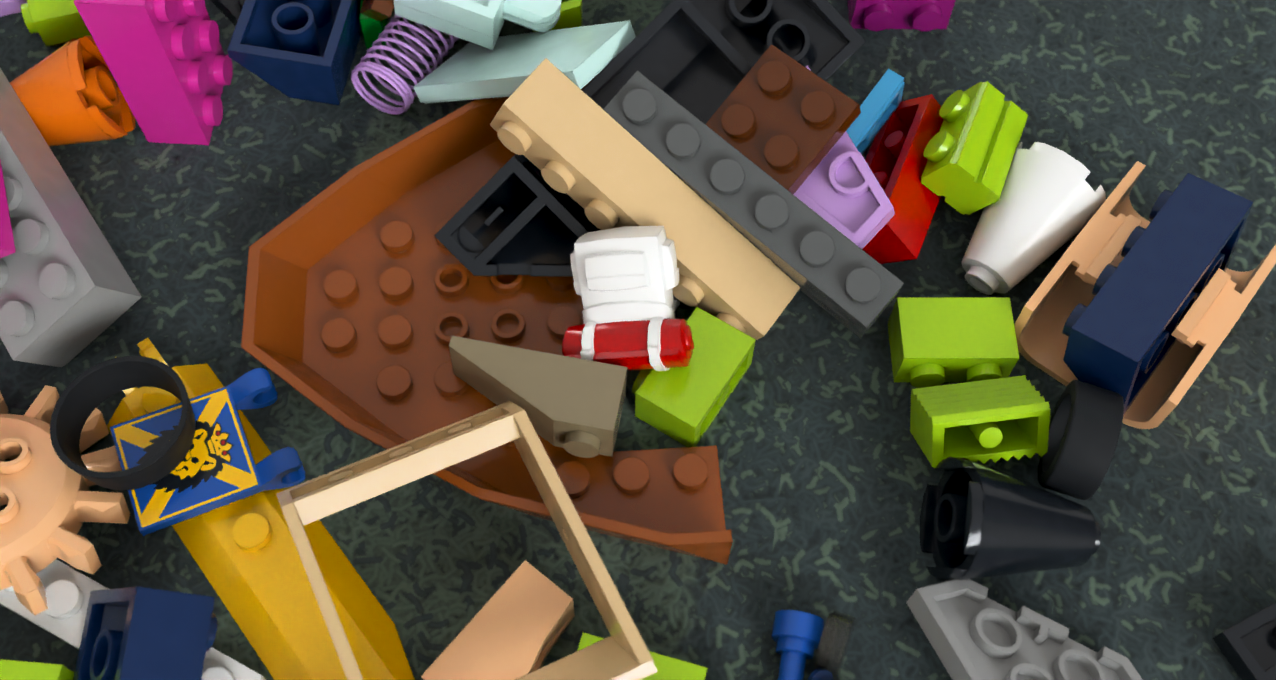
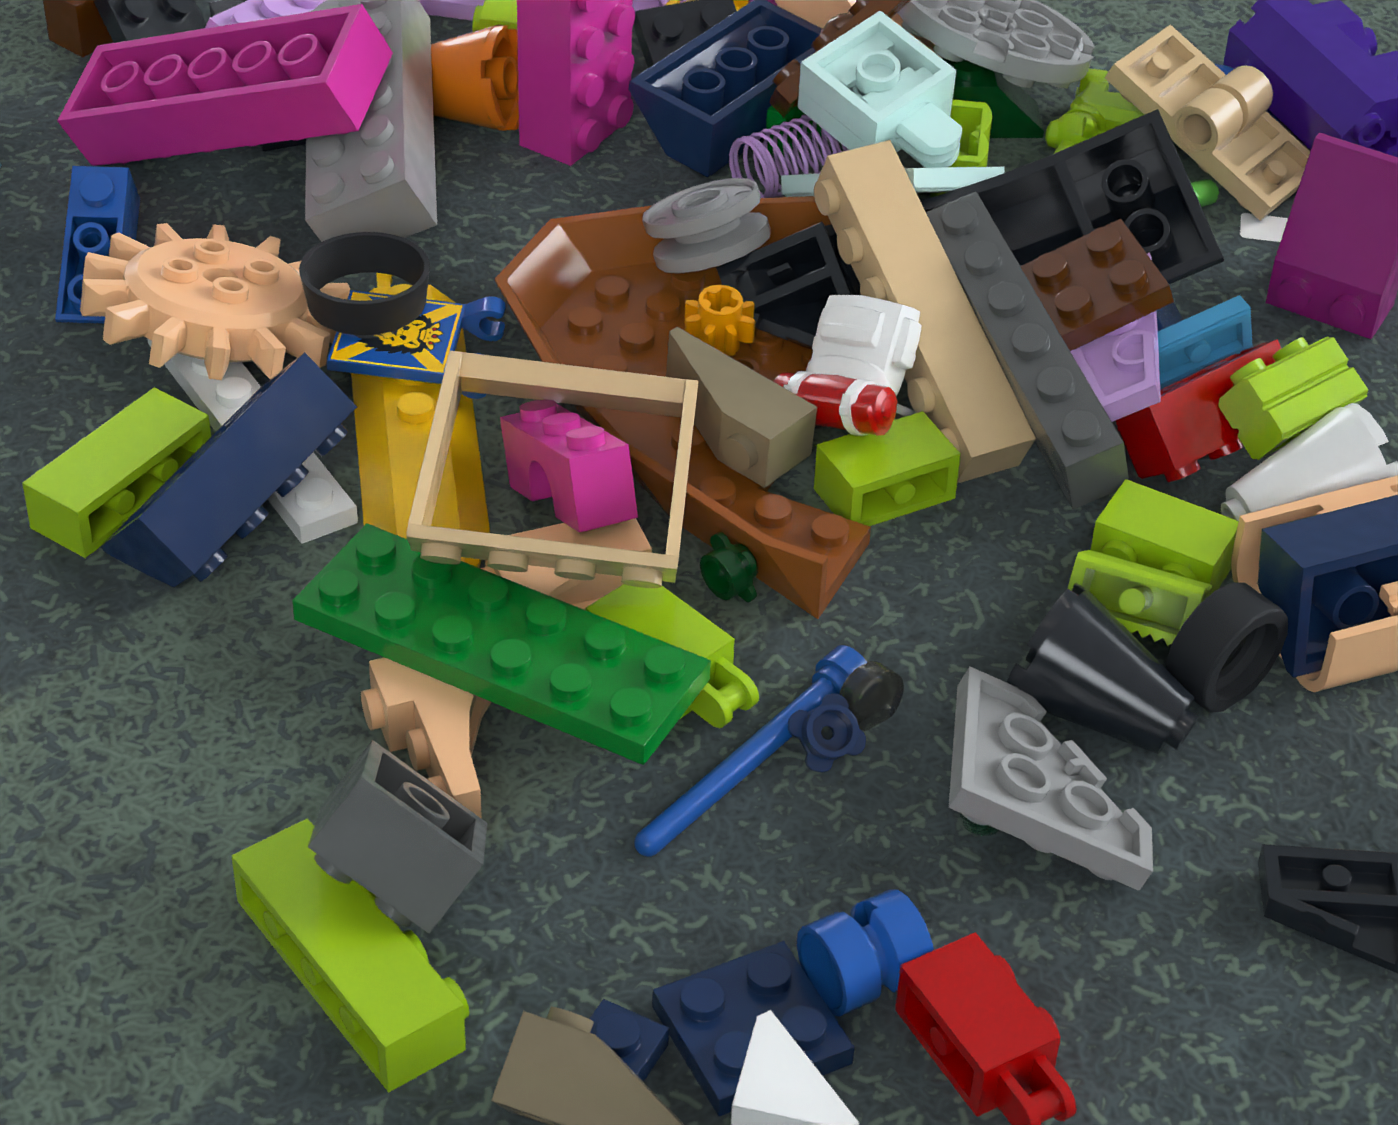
camera: 30 degrees right, 20 degrees down
(401, 195) = (706, 225): none -> light grey wheel
(466, 279) = (721, 318): none -> light orange gear
(470, 554) = (572, 462): none -> dark pink arch
(637, 564) = (729, 569): none -> dark green plate

